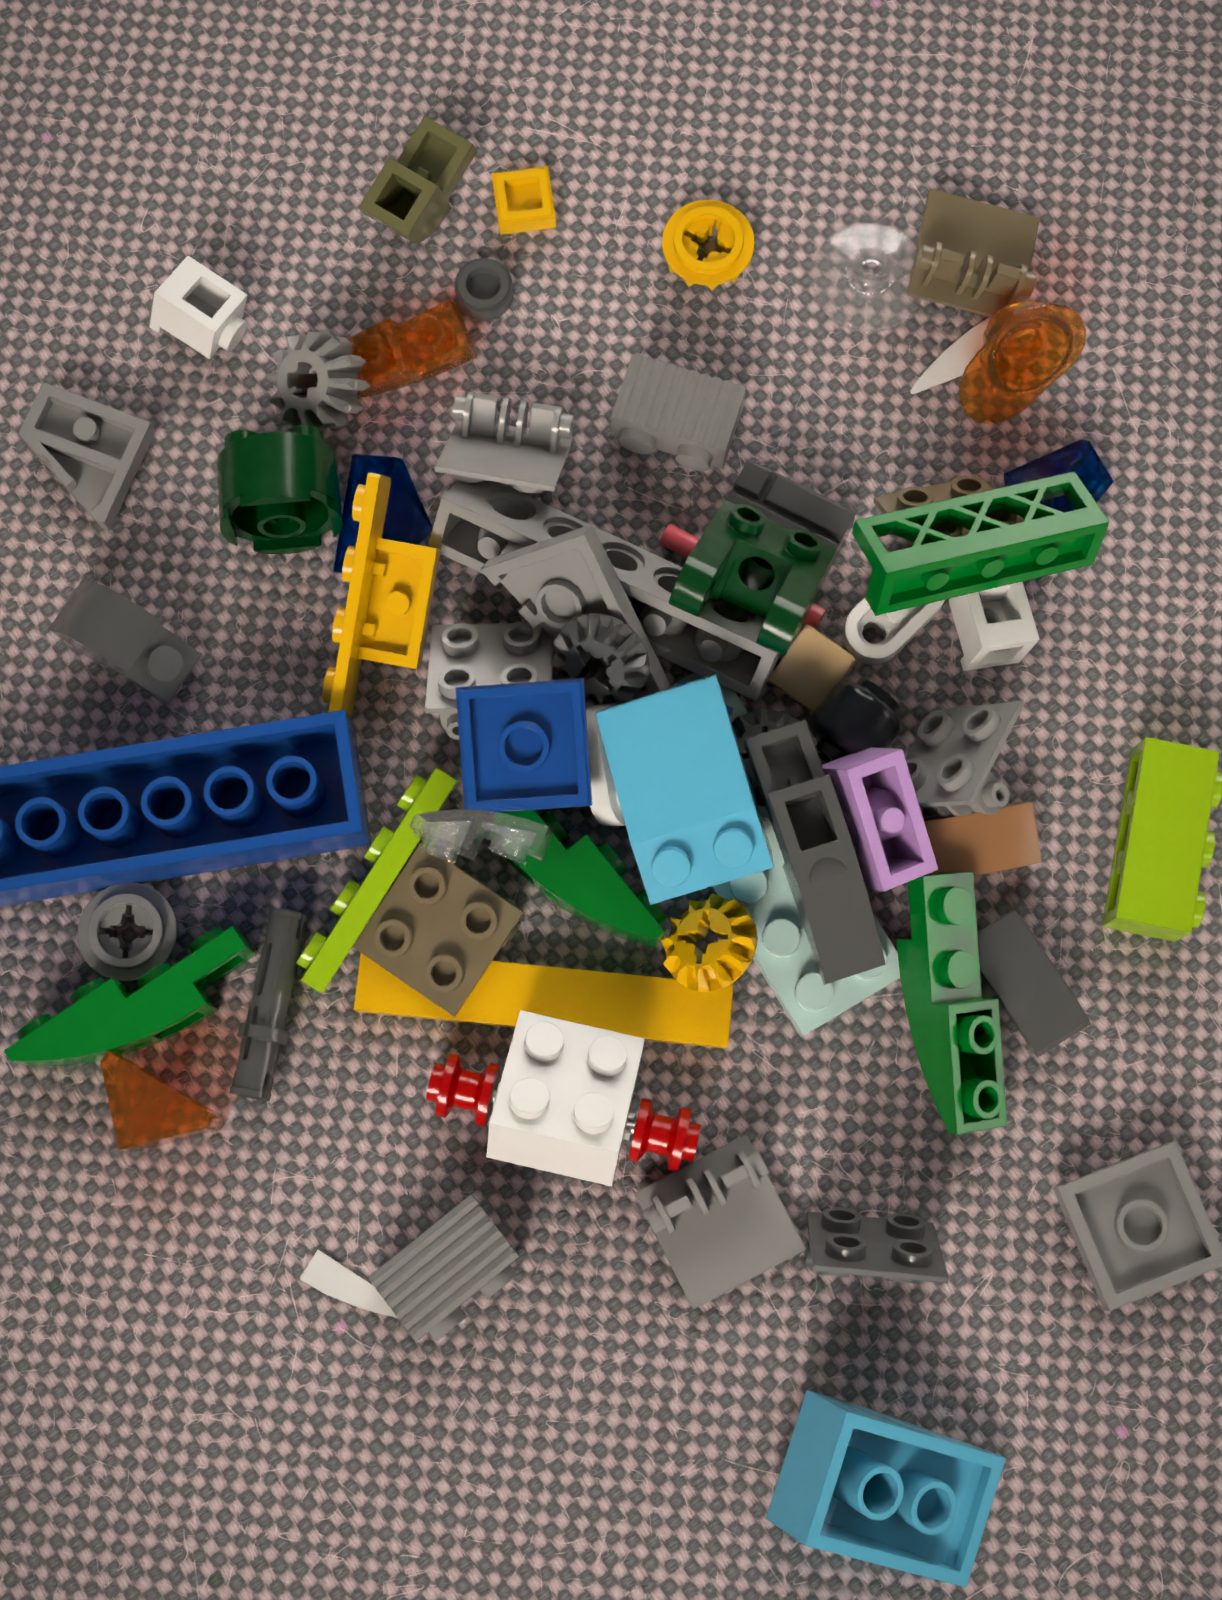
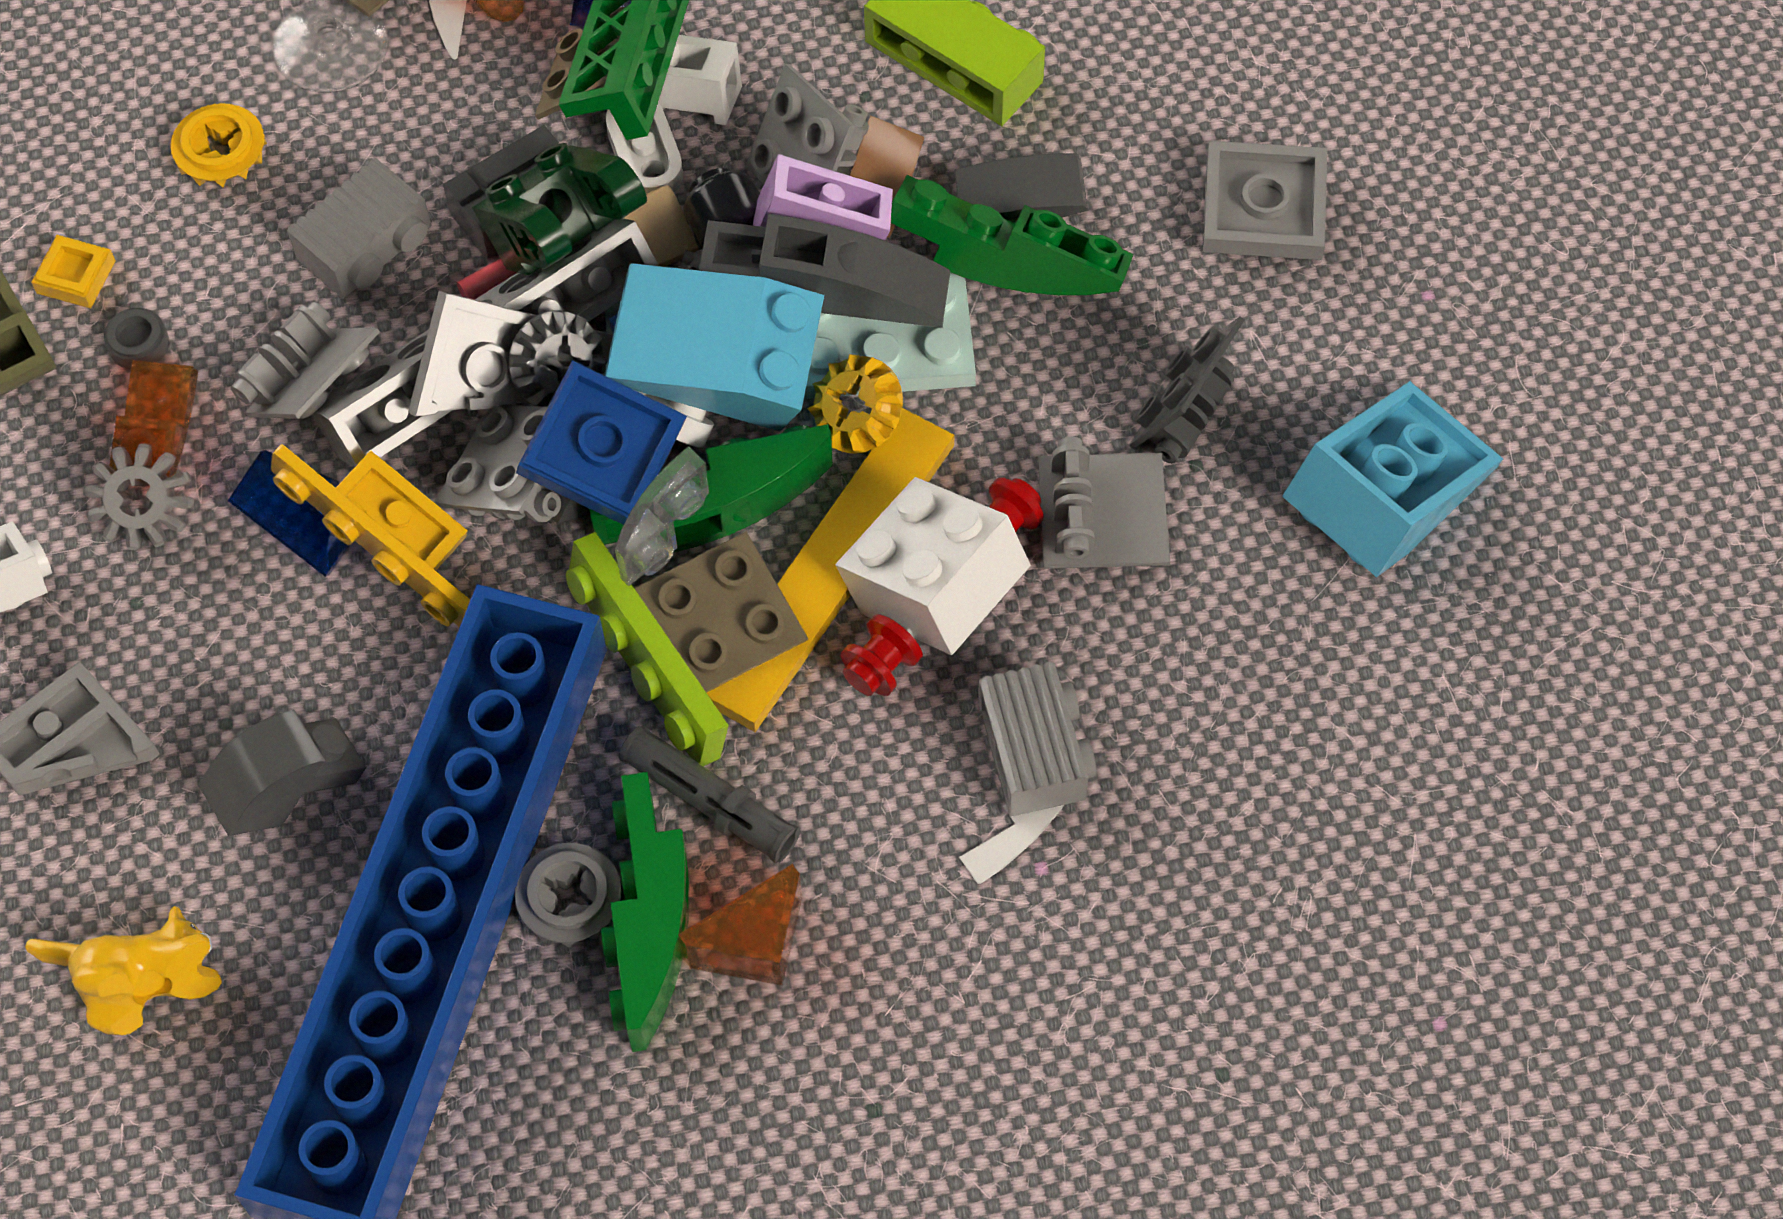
camera: 65 degrees left, 15 degrees down
(278, 489) = (225, 568): dark green brick -> none

